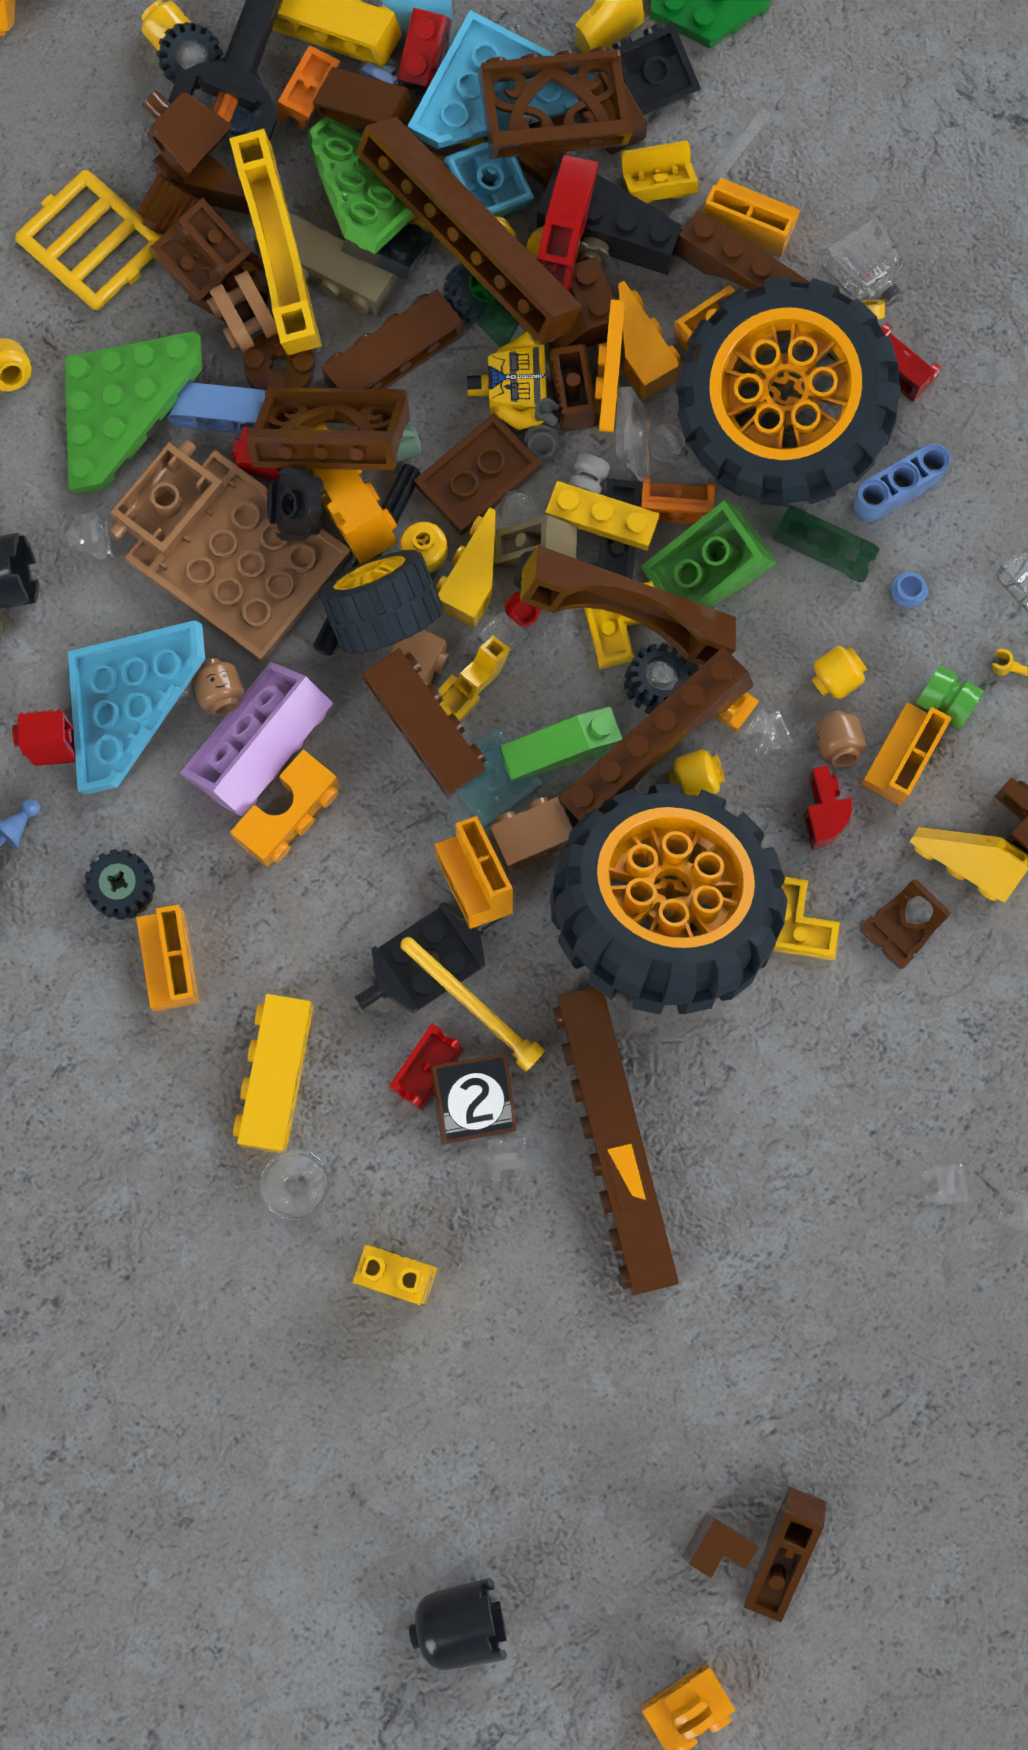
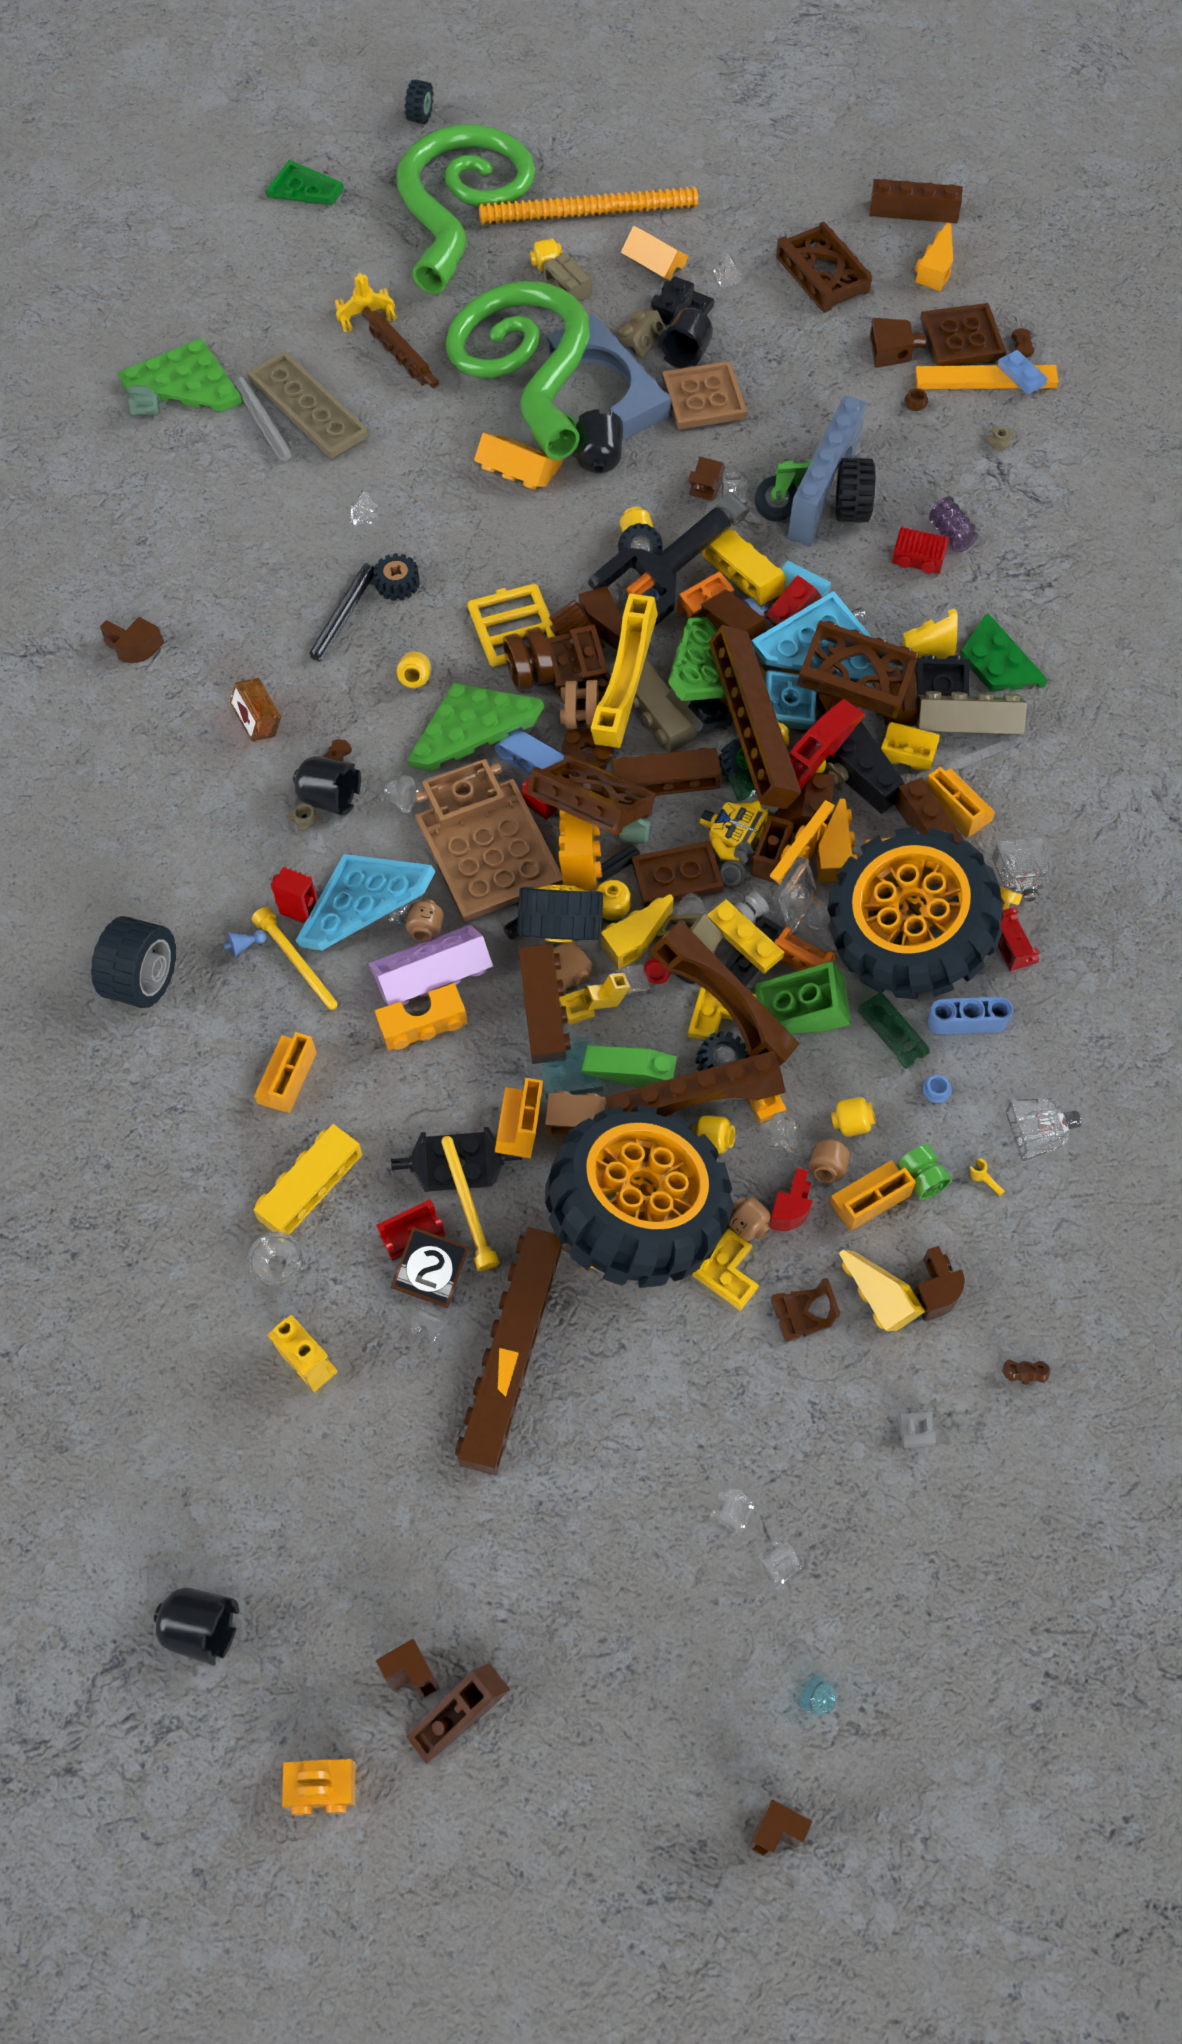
camera: 30 degrees right, 15 degrees down
(25, 783) = (265, 920): none -> yellow piece
(131, 891) = (282, 1020): black wheel -> none
(143, 282) = (528, 659): none -> reddish brown wheel
(184, 131) = (606, 582): reddish brown torso -> none
(303, 490) = (541, 828): black plate -> none
(709, 93) = (971, 714): none -> dark tan brick
(794, 852) = (750, 1219): none -> medium nougat head

